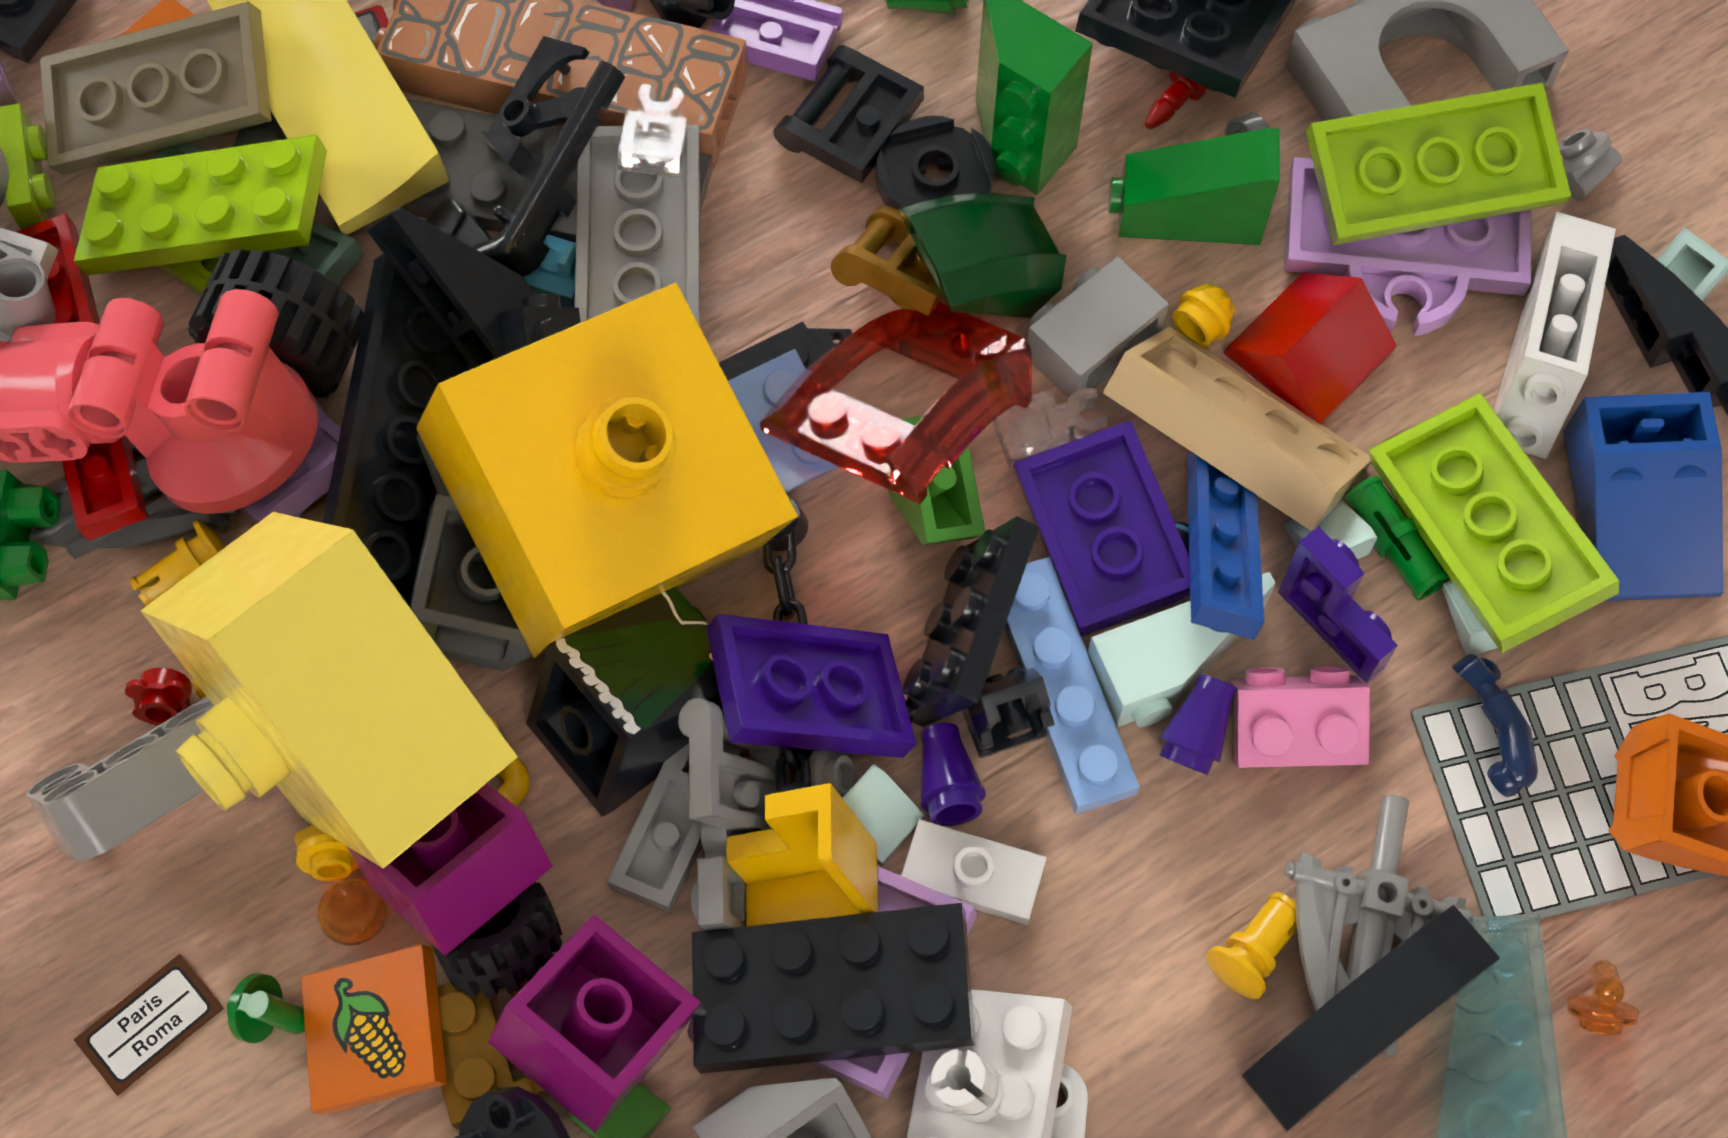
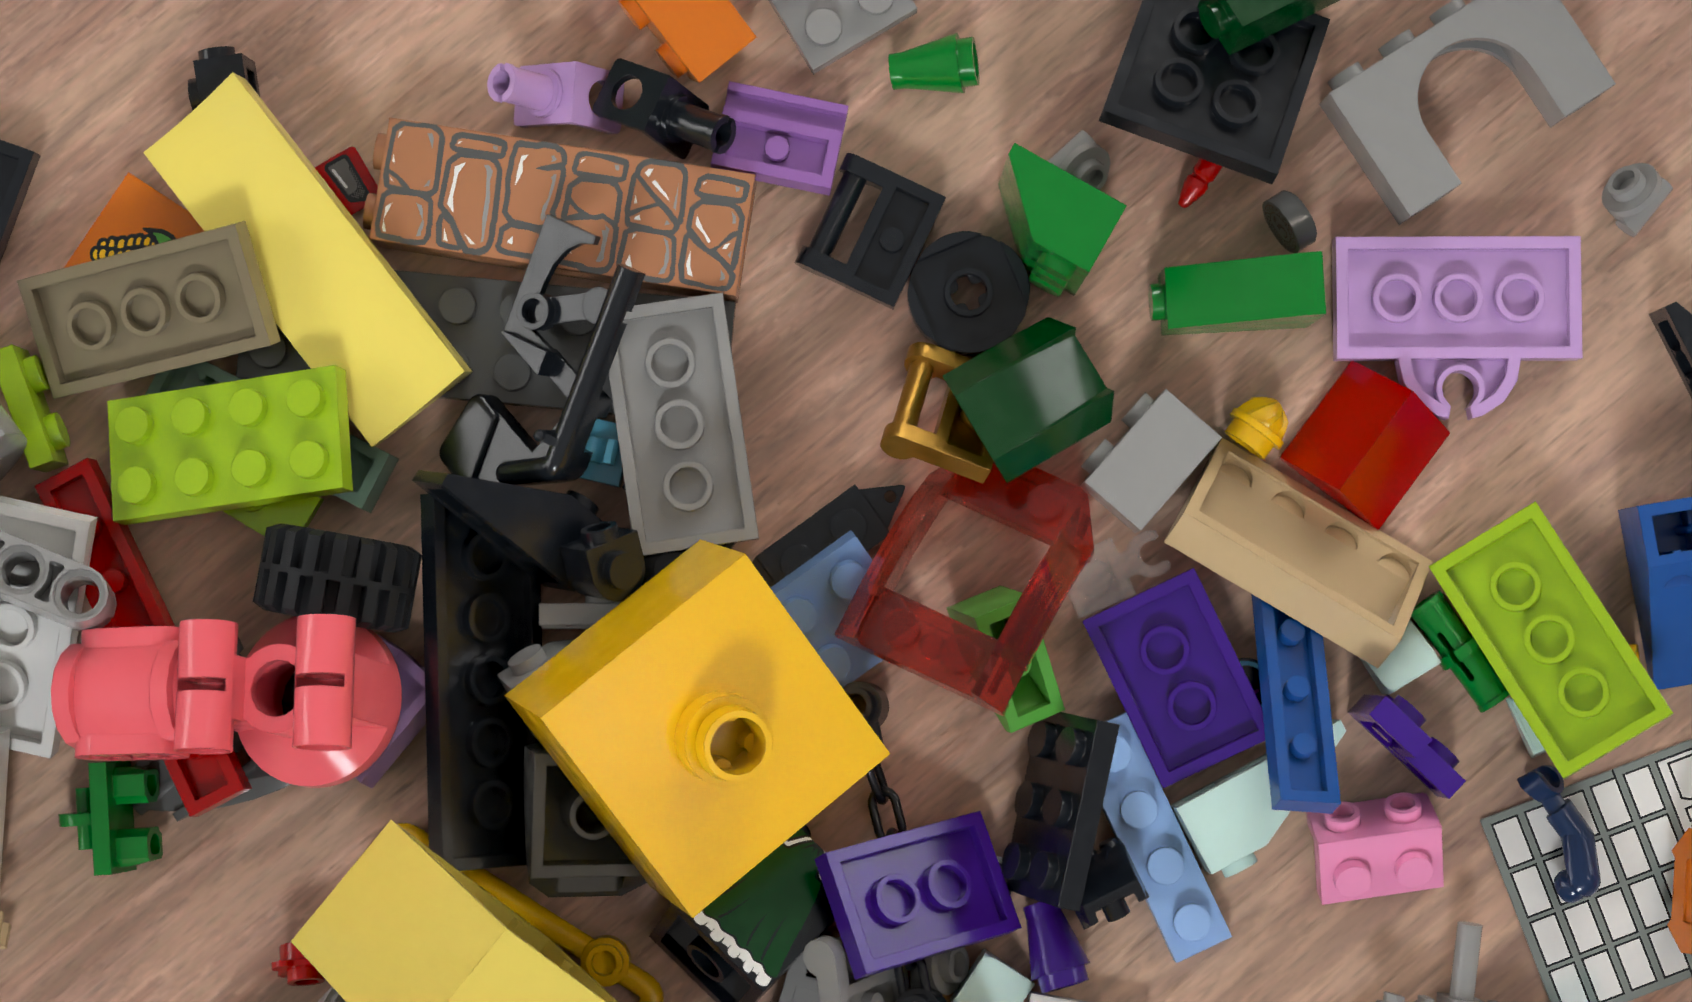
camera: 10 degrees left, 20 degrees up
(178, 564) = (300, 820): yellow pin -> none
(653, 135) = (681, 328): clear plate -> none
(1199, 726) = (1282, 877): dark purple cone -> none
(1437, 163) = (1484, 246): lime plate -> none
(1555, 332) = (1607, 413): white slope -> none

